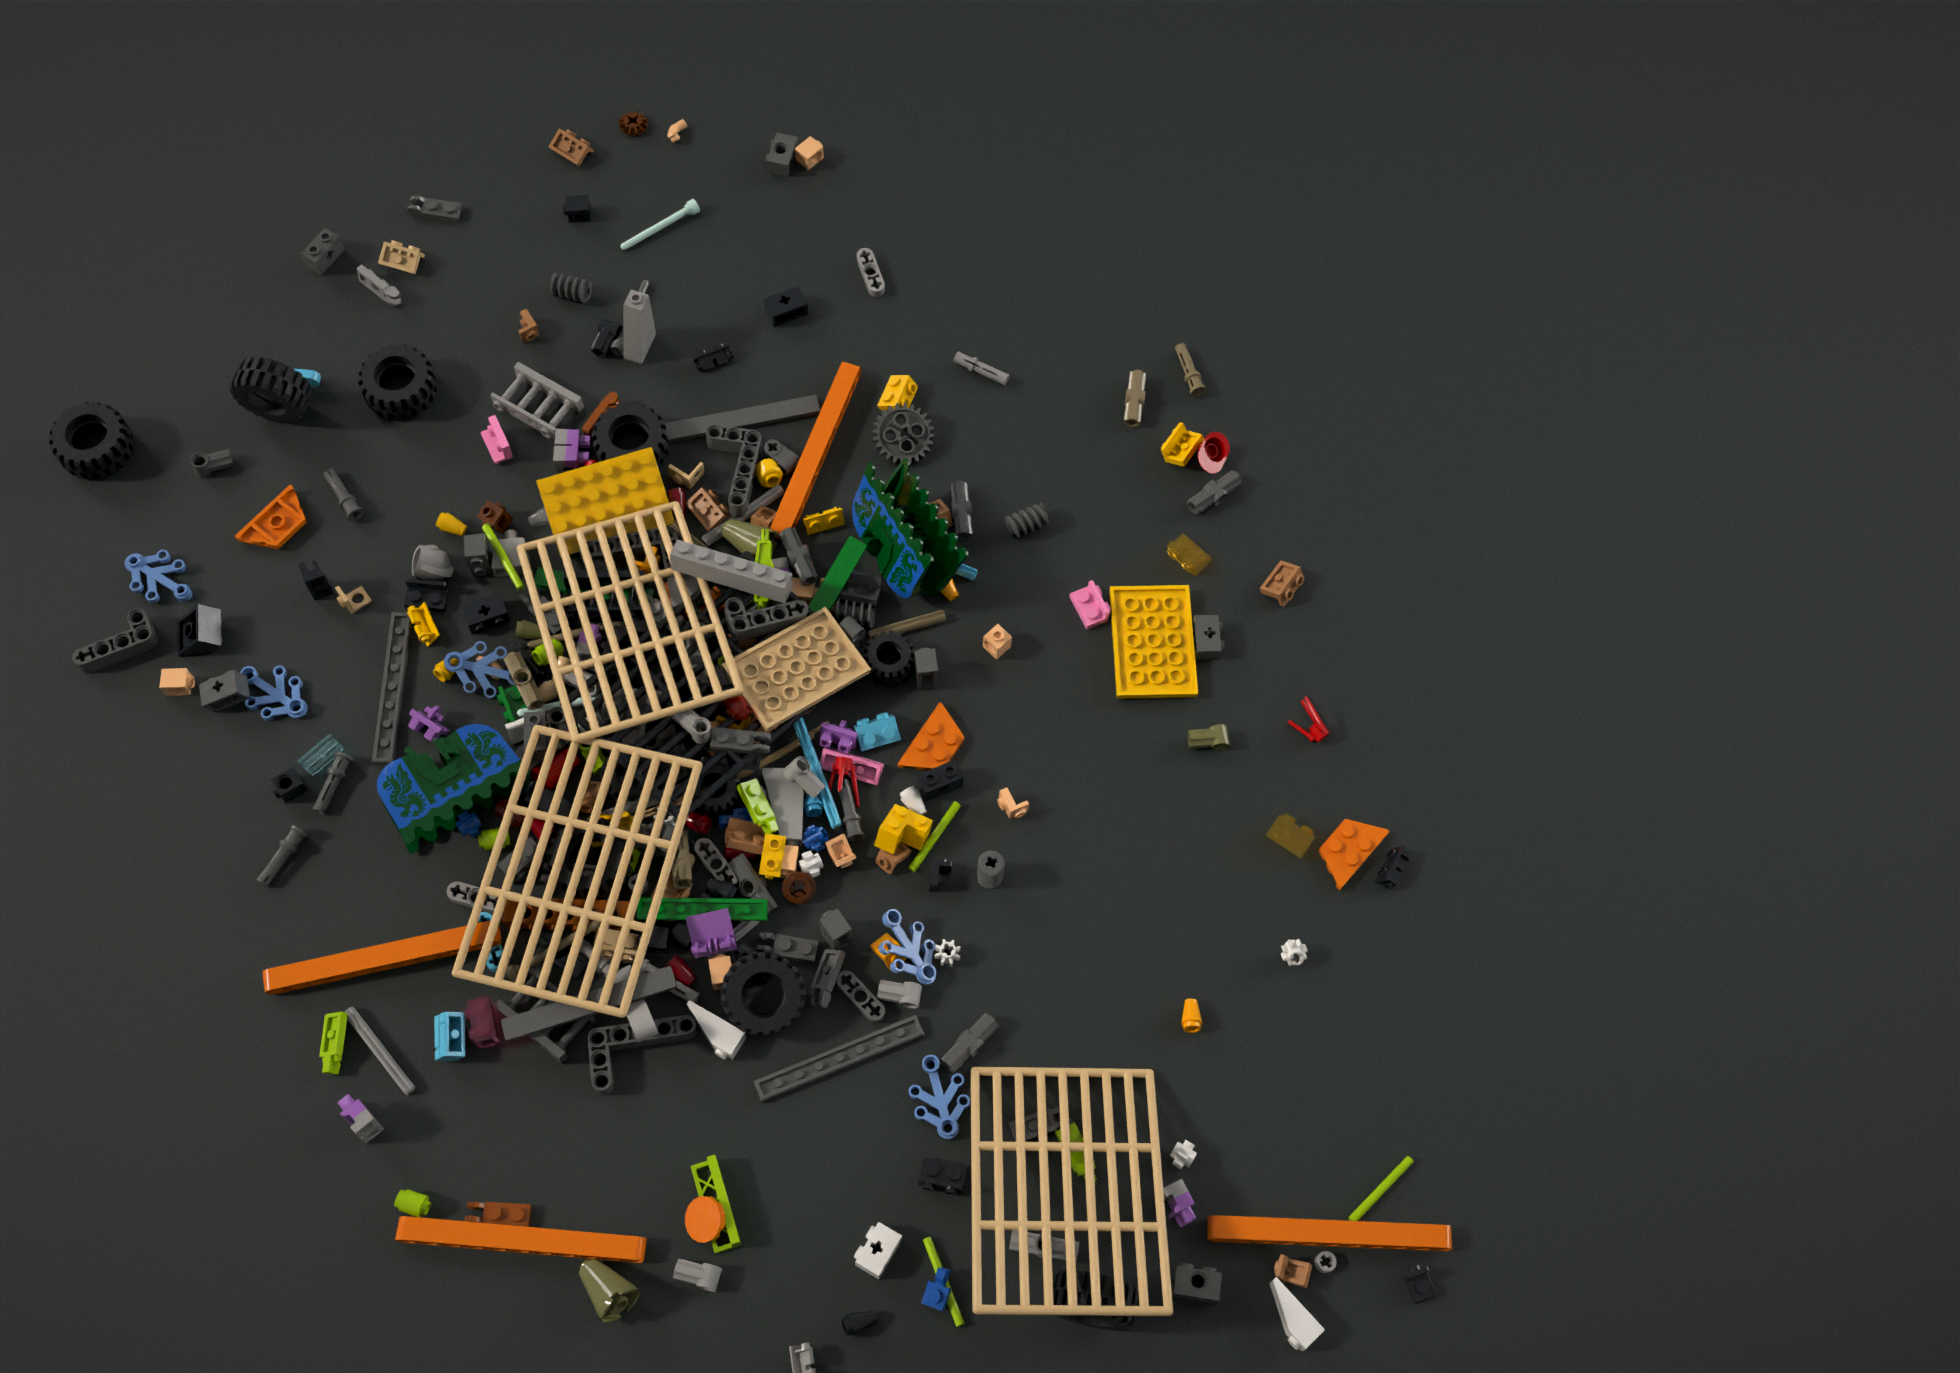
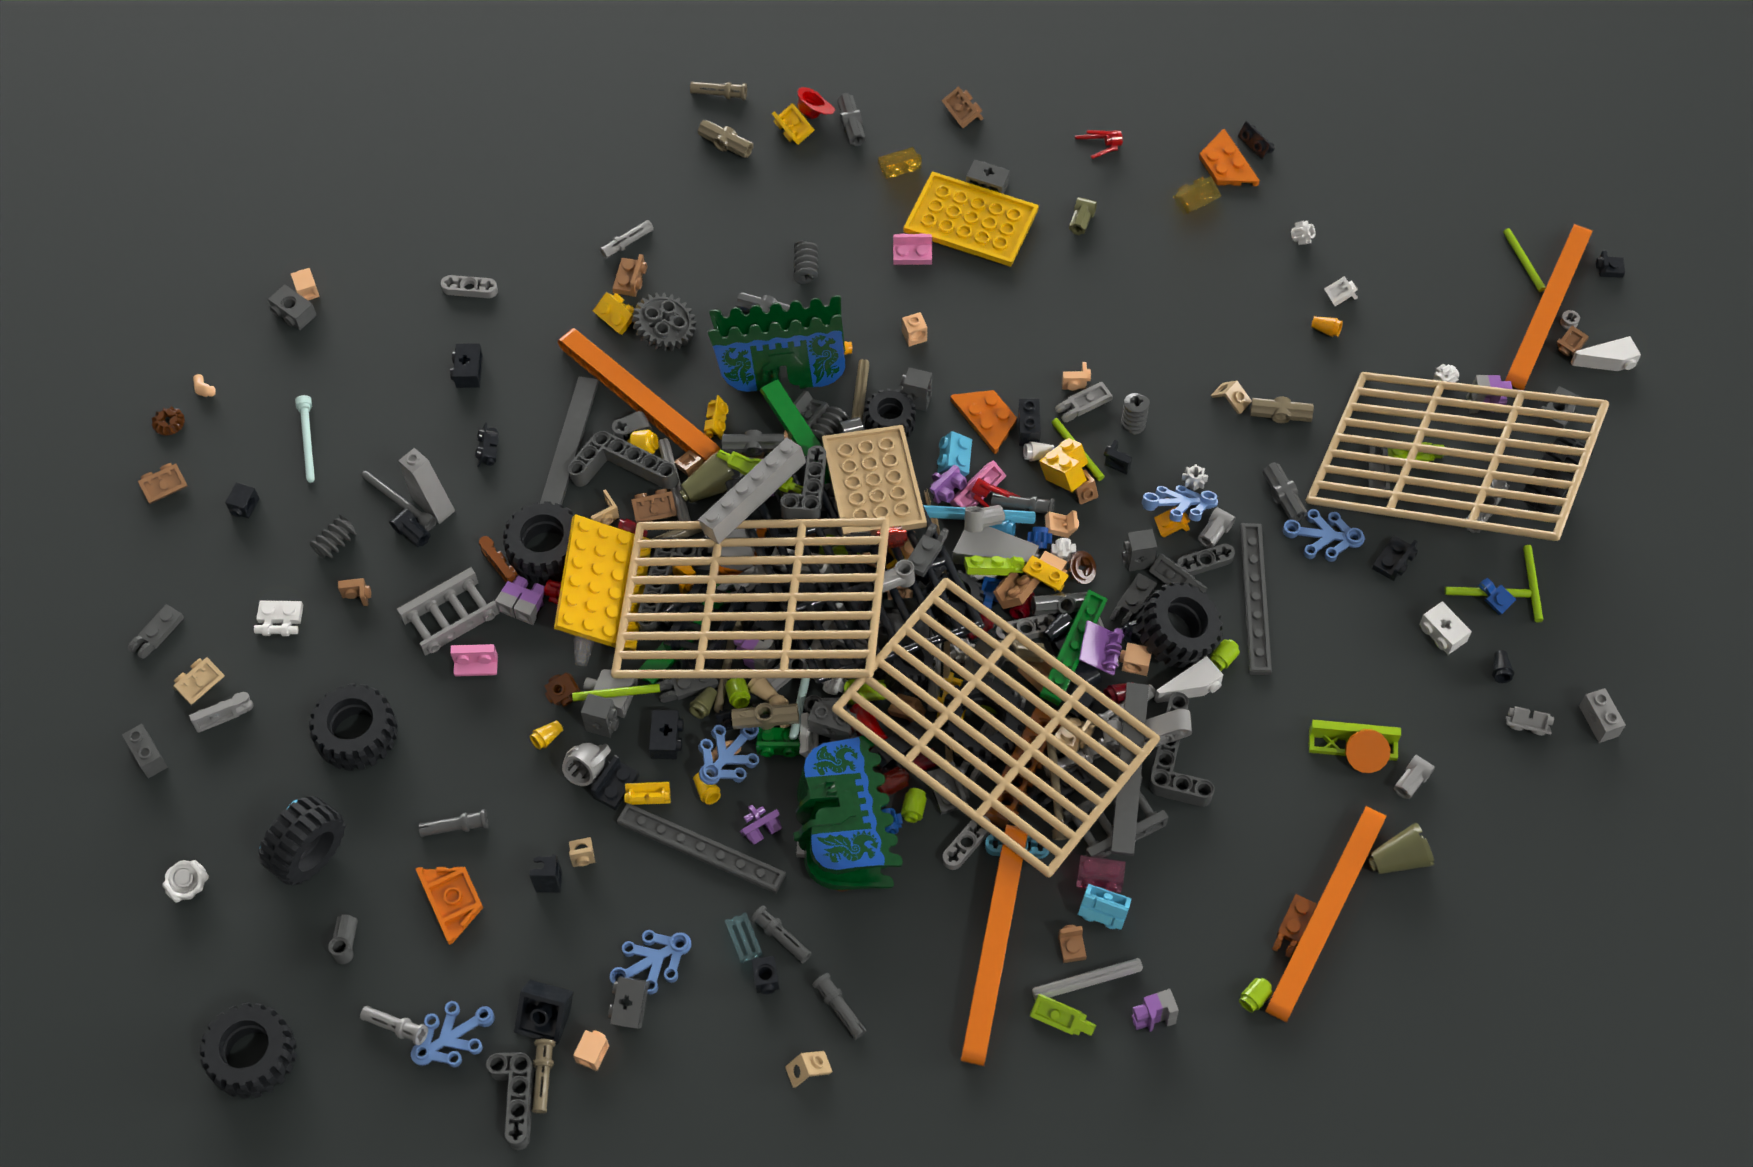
camera: 60 degrees left, 5 degrees down
(148, 537) = (402, 1027): none -> light grey pin
(153, 652) = (542, 1063): none -> dark tan pin
(219, 330) = (184, 880): none -> white hair
(219, 855) = (810, 1065): none -> tan bracket
(408, 1024) = (1072, 943): none -> medium nougat bracket
(488, 283) = (278, 612): none -> white plate
(759, 1050) = (1224, 654): none -> lime brick
(943, 388) = (629, 276): none -> medium nougat bracket
(965, 1328) = (1533, 585): none -> lime bar
(990, 822) = (1084, 401): none -> light grey hinge
(1061, 955) = (1234, 394): none -> tan bracket
(1066, 1006) = (1281, 410): none -> dark tan piece
(1241, 1015) = (1341, 290): none -> white bracket

